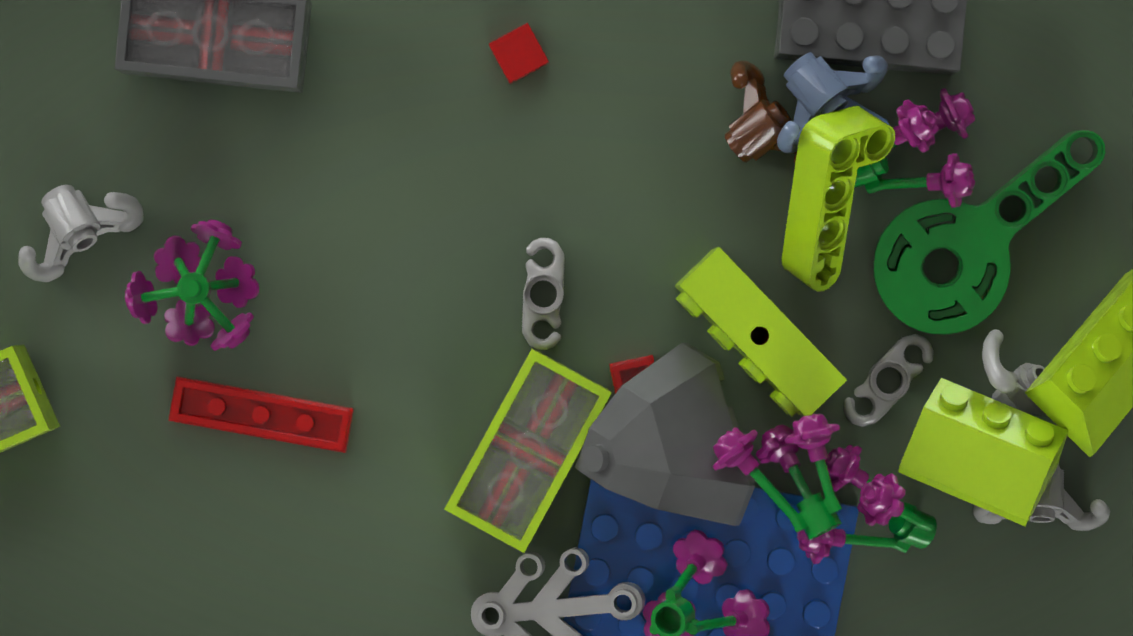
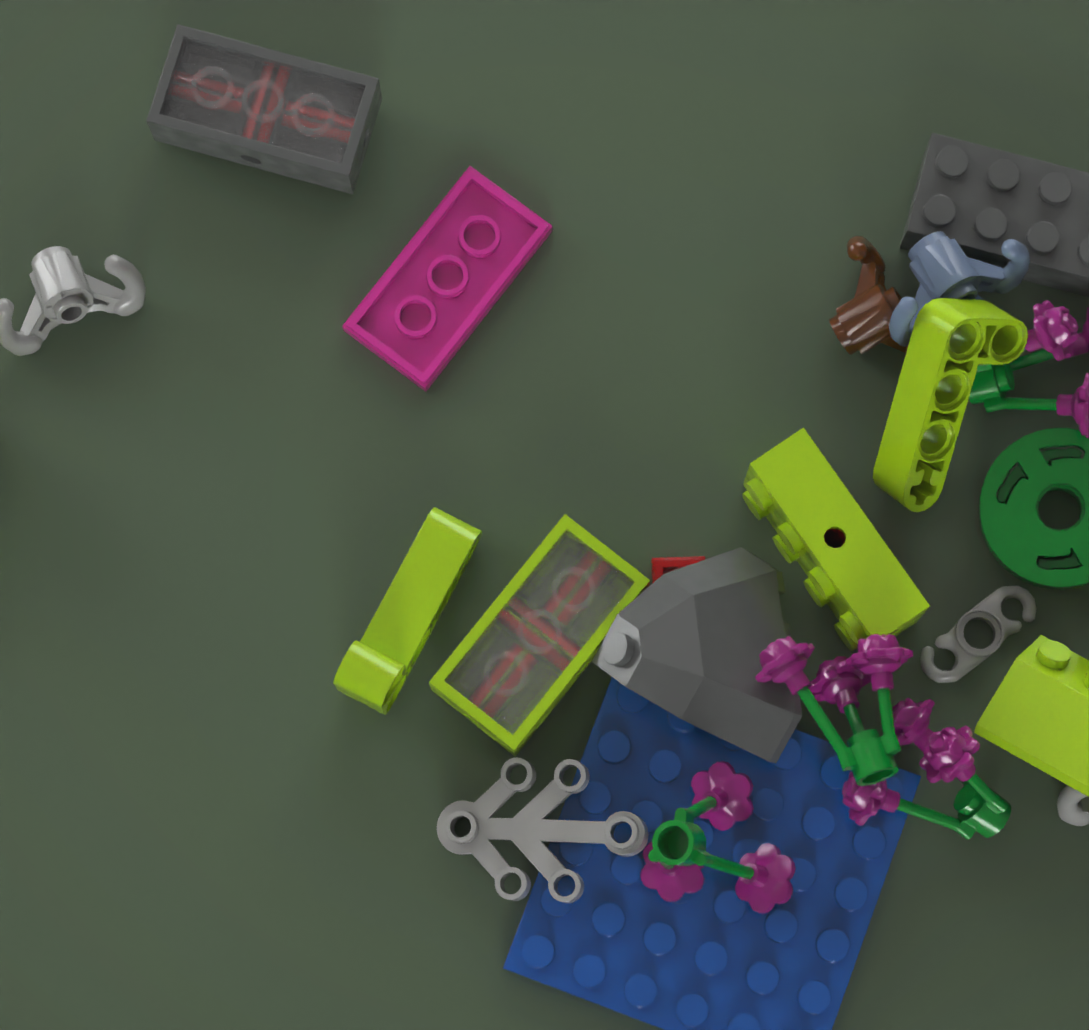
camera: 10 degrees right, 10 degrees down
(182, 264) = (179, 363): magenta plant -> none
(261, 414) = (235, 548): red tile -> none
(396, 151) = (447, 278): none -> dark pink tile
(415, 446) = (383, 659): none -> lime beam
(518, 53) = (607, 191): red tile -> none
(554, 274) = (603, 445): light grey piece -> none

